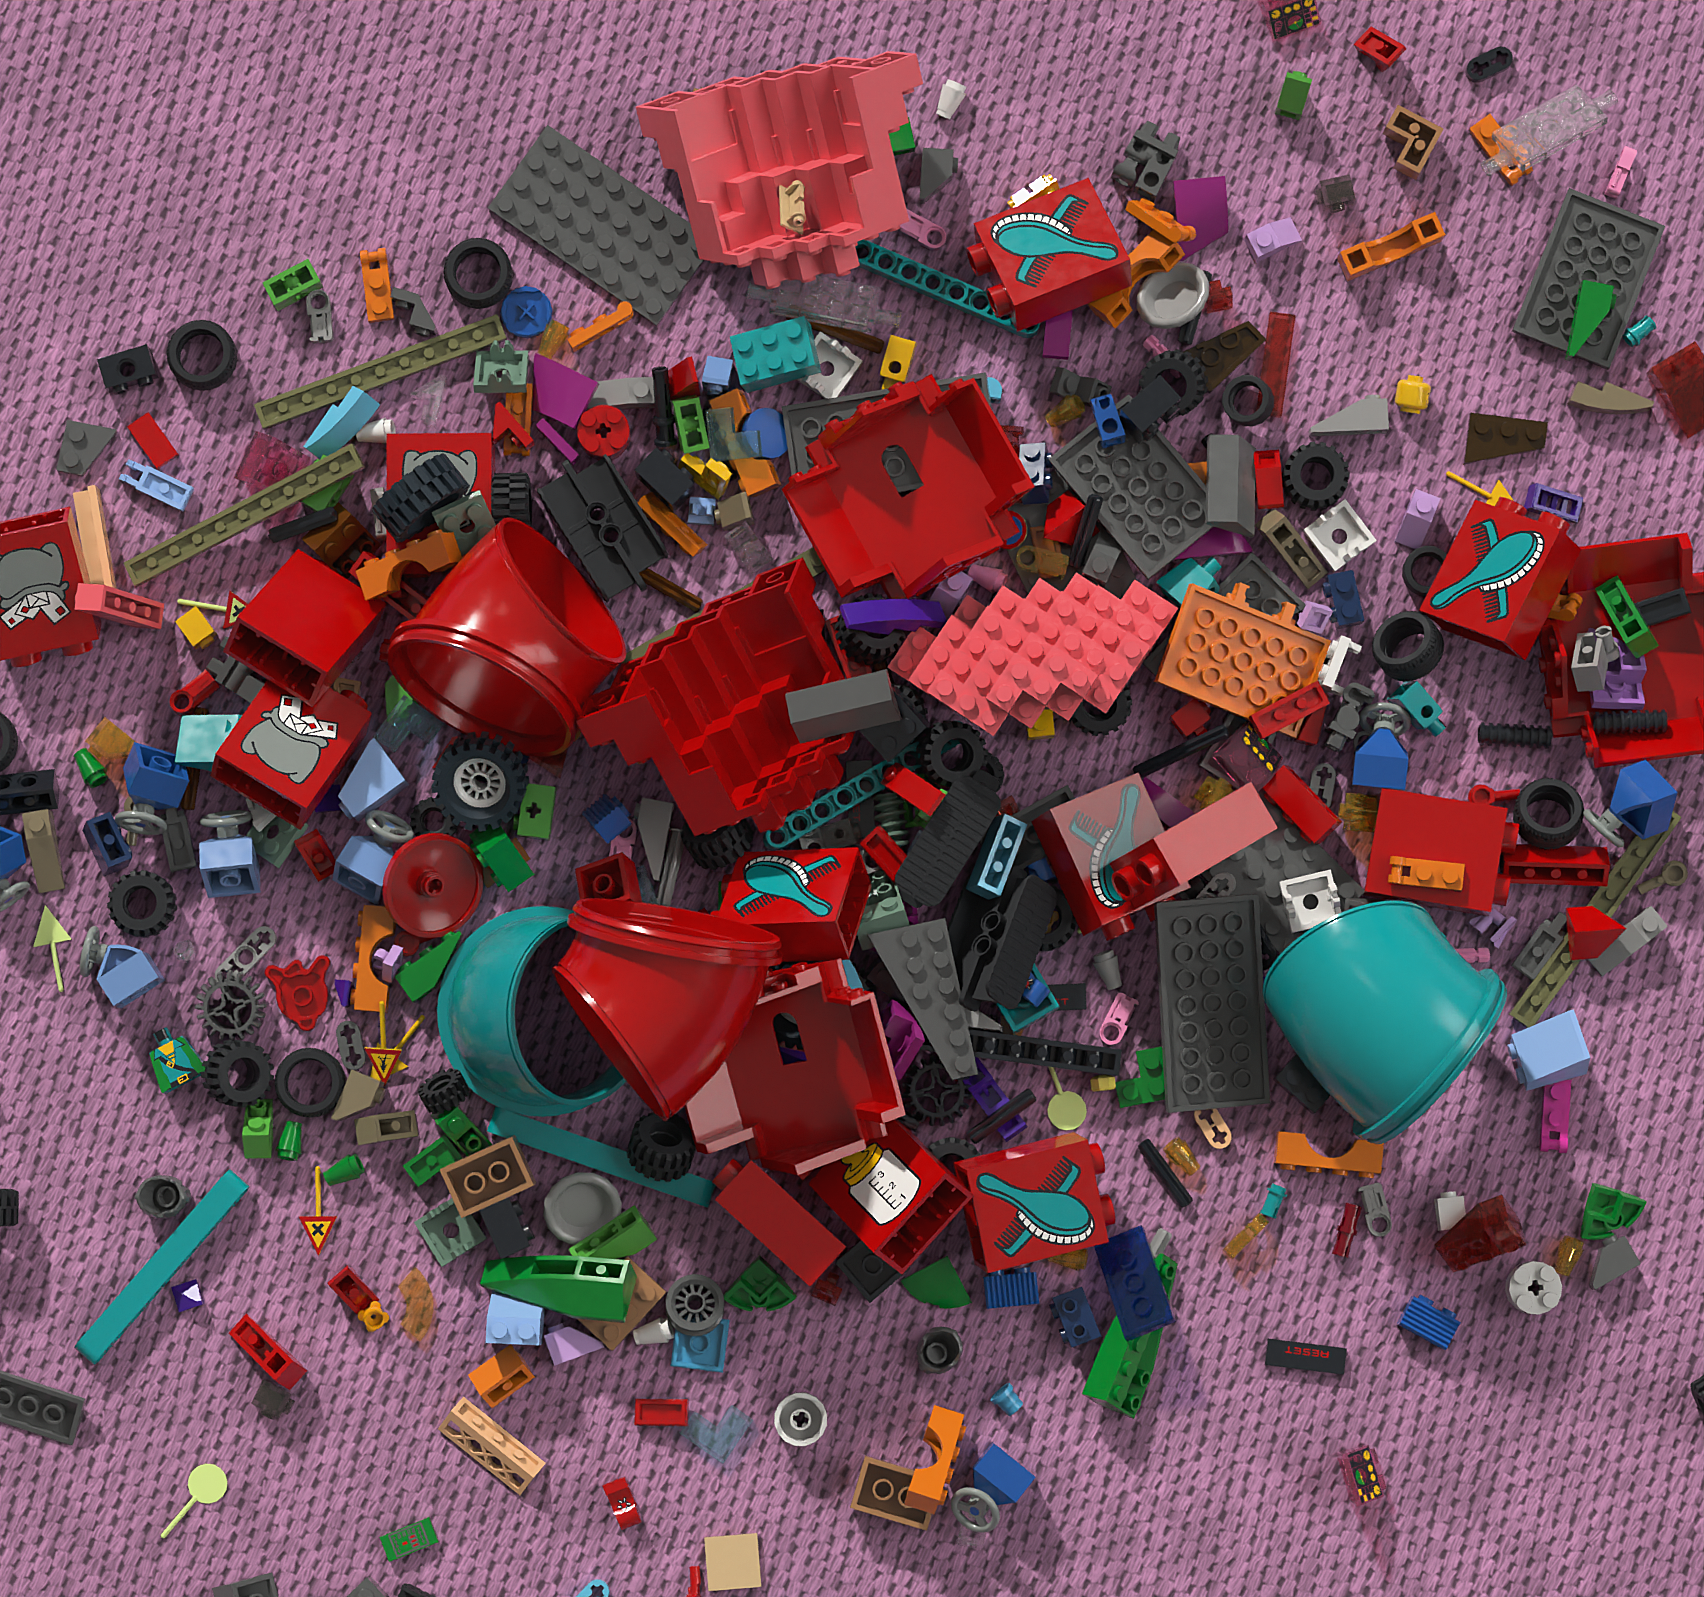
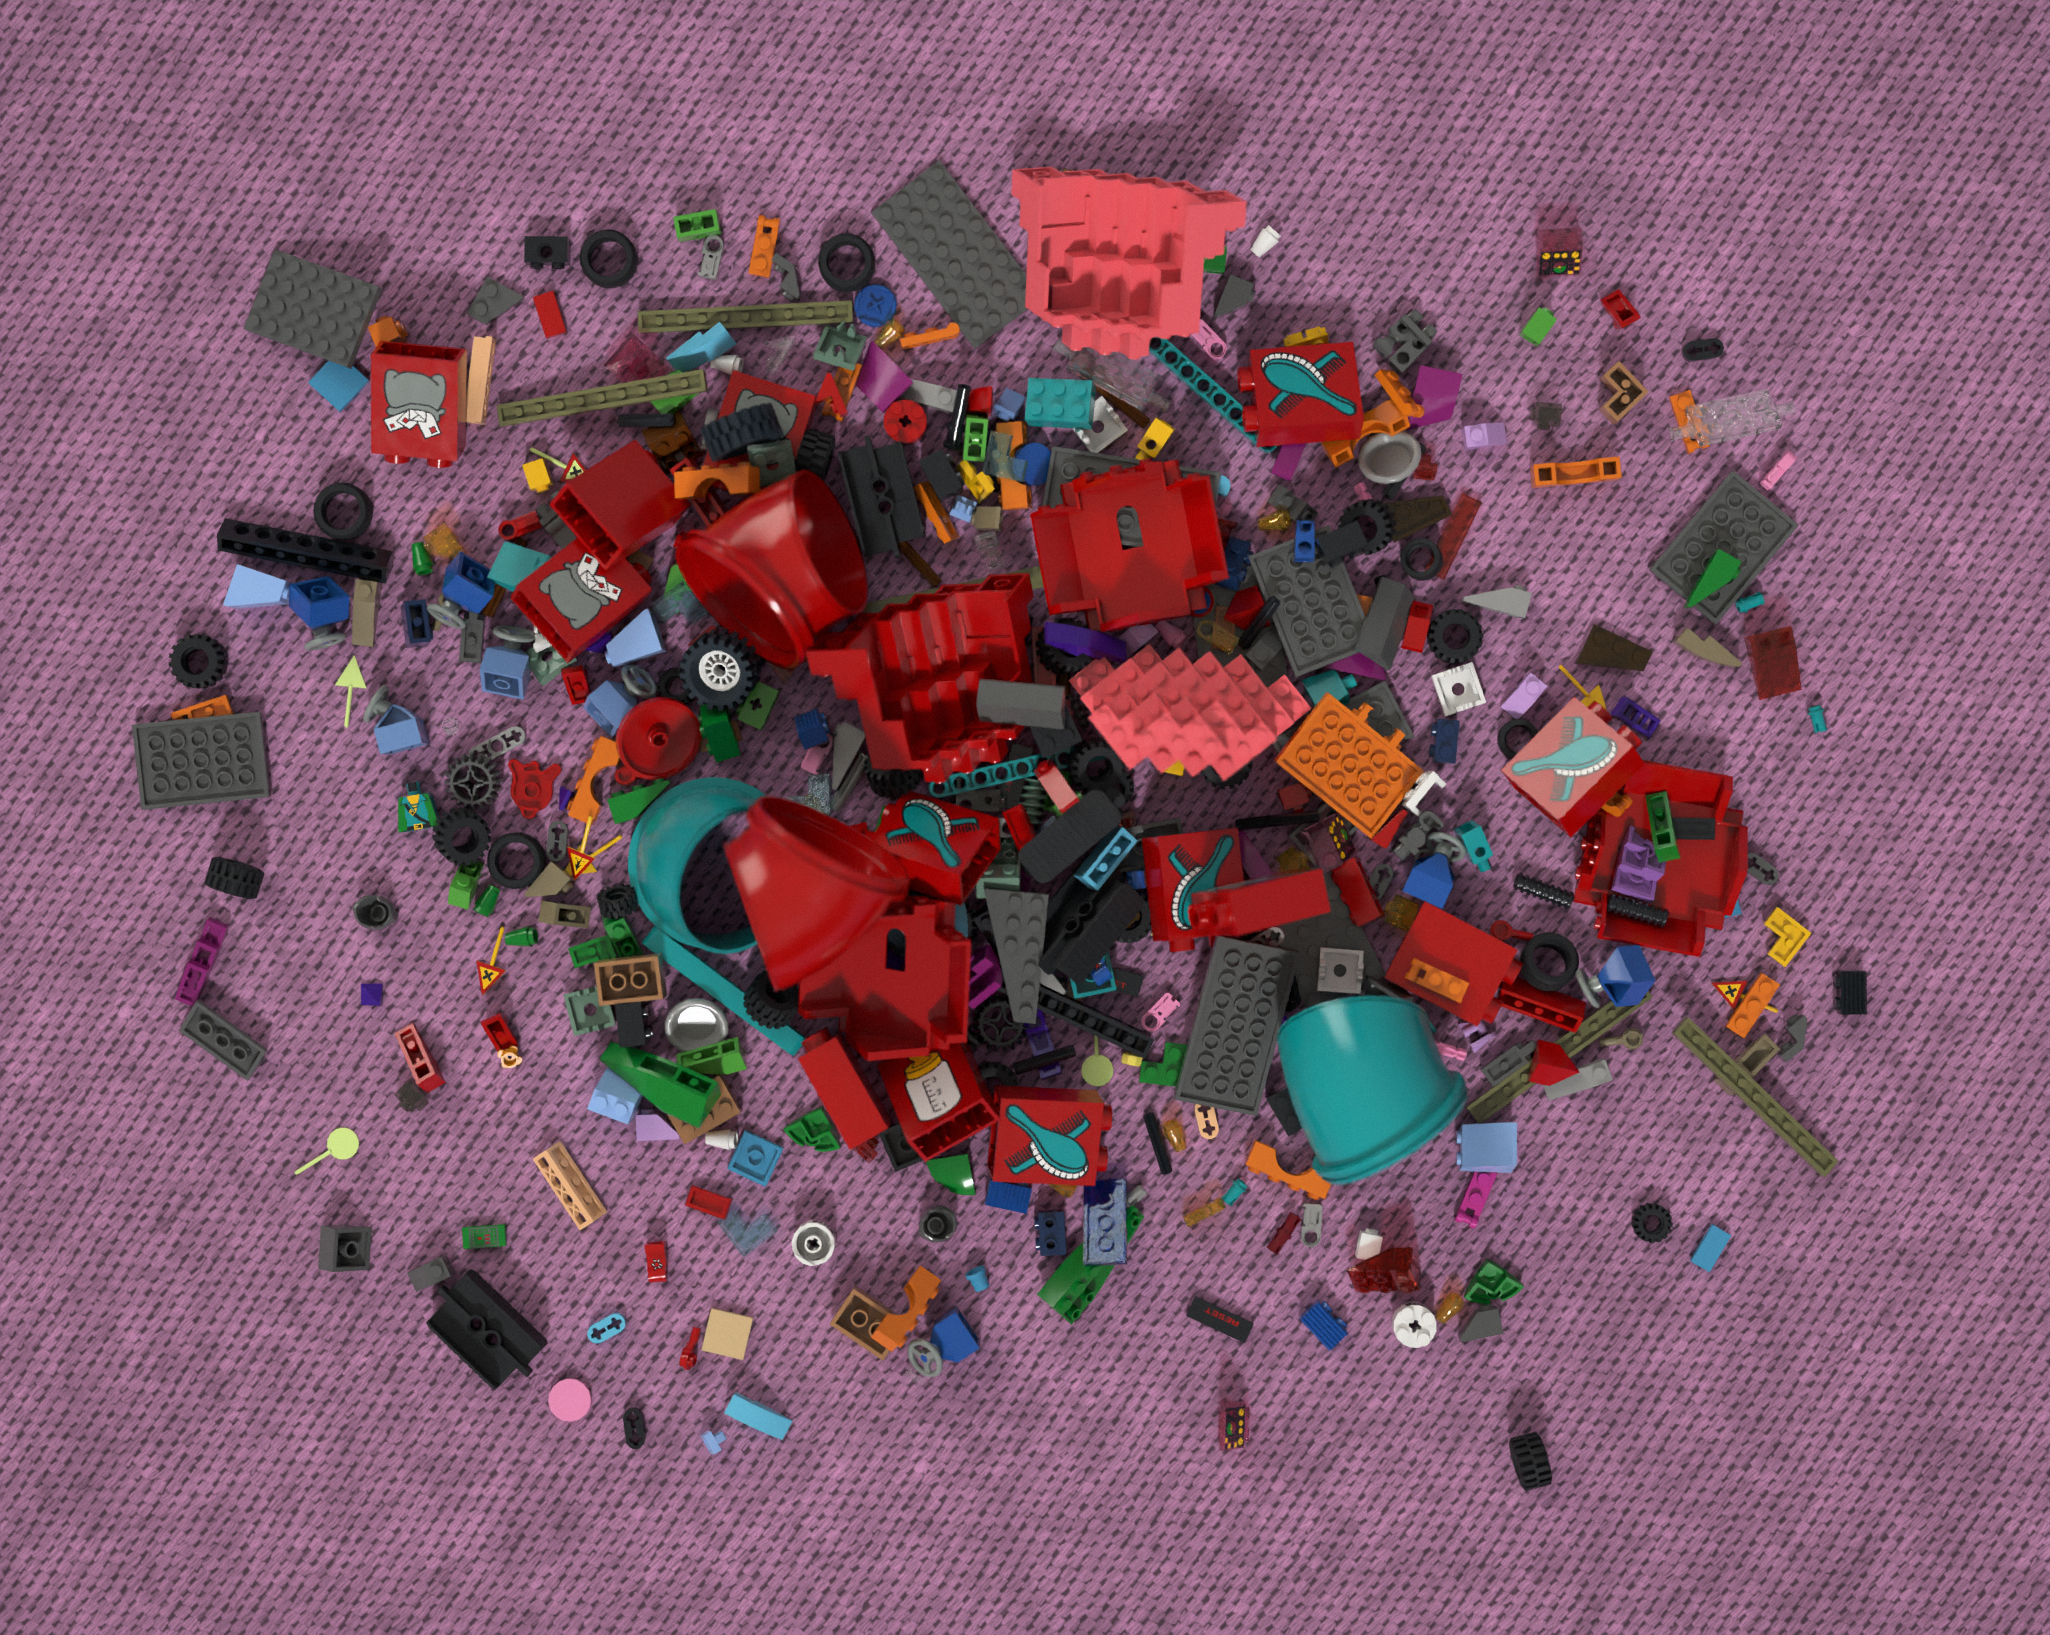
camera: 20 degrees right, 5 degrees up
(119, 606) = (480, 440): coral brick -> none
(119, 903) = (410, 679): black tyre -> none
(159, 486) = (544, 353): light blue hinge -> none
(161, 1267) = (358, 966): teal beam -> none
(388, 962) = (606, 786): lavender tile -> none
(419, 1304) = (548, 1057): clear yellow tile -> none
(498, 1377) = (593, 1135): orange brick -> none
(557, 441) = (867, 417): magenta tile -> none
(609, 879) = (796, 781): red brick -> none
(712, 1290) = (774, 1140): dark grey wheel -> none
(792, 207) = (1110, 291): tan hinge -> none
(1108, 968) = (1165, 970): light grey cone -> none
(1289, 710) = (1372, 815): red plate -> none
(1291, 548) = (1416, 686): dark tan slope -> none
(1314, 617) = (1416, 748): lavender tile -> none
(1397, 629) = (1478, 778): black tyre -> none
(1412, 394) = (1553, 595): yellow head -> none
(1592, 658) = (1623, 853): light grey hinge -> none

